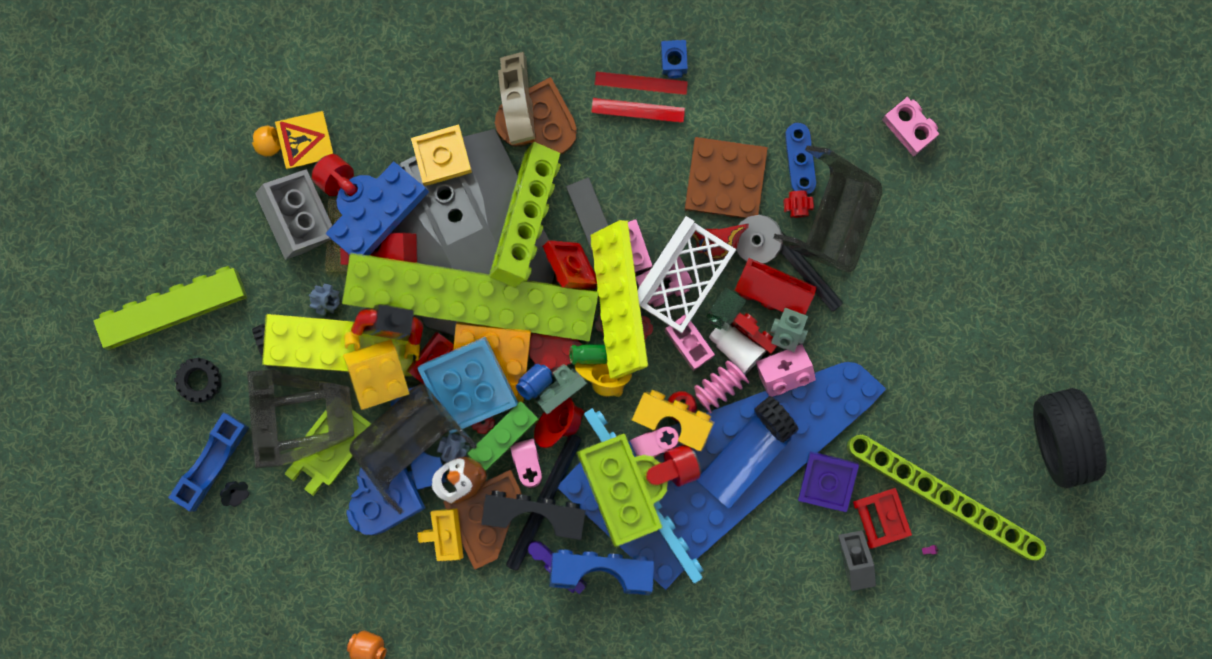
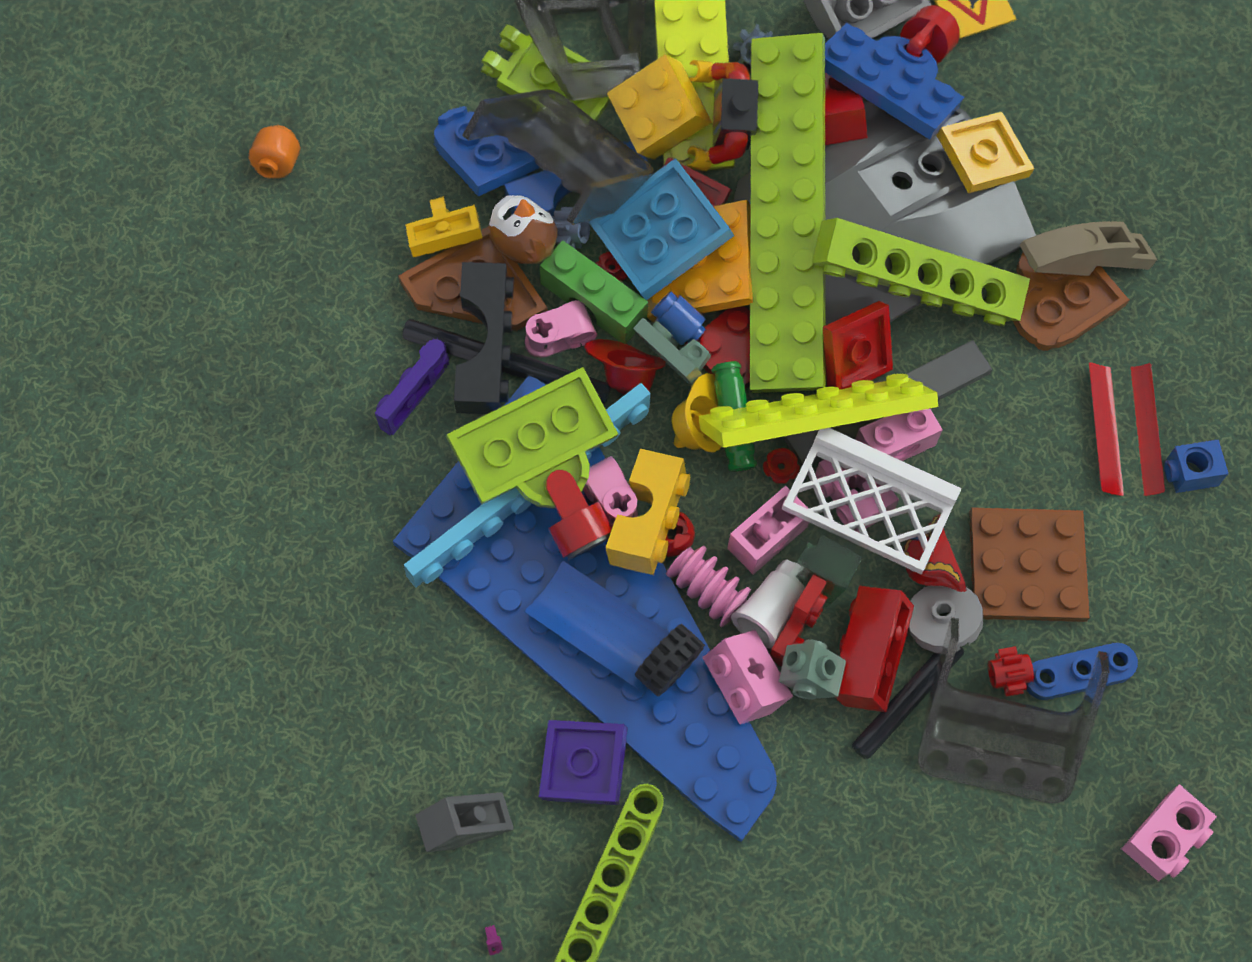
camera: 80 degrees right, 15 degrees down
(633, 574) = (407, 390): blue arch -> none
(890, 516) = (541, 867): red plate -> none

